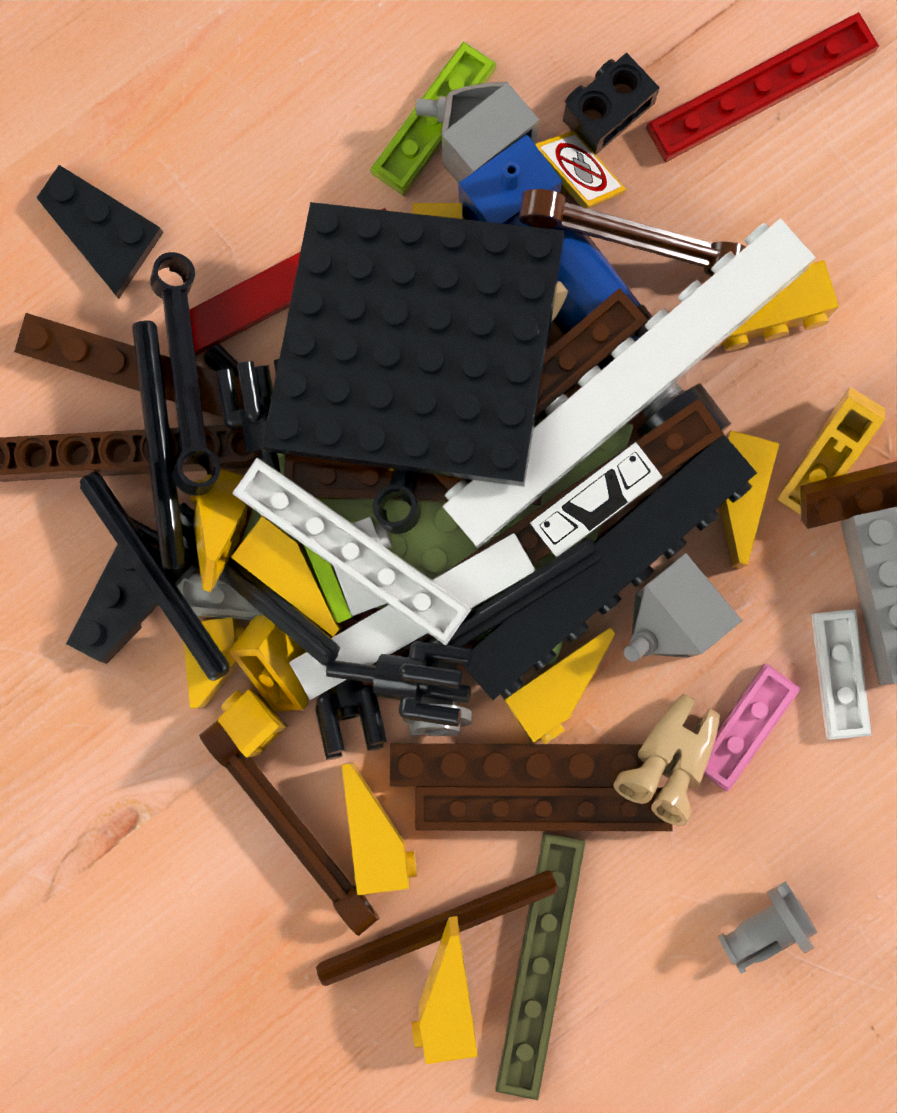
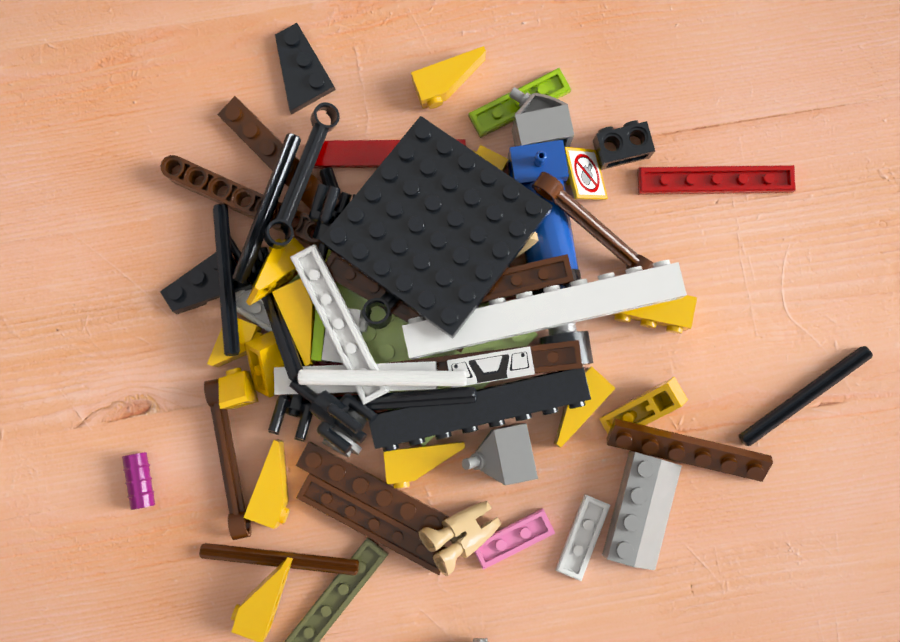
camera: 25 degrees right, 0 degrees up
(178, 925) = (138, 481): none -> magenta axle
(306, 143) = (439, 81): none -> yellow slope
(453, 593) = (382, 377): none -> white axle

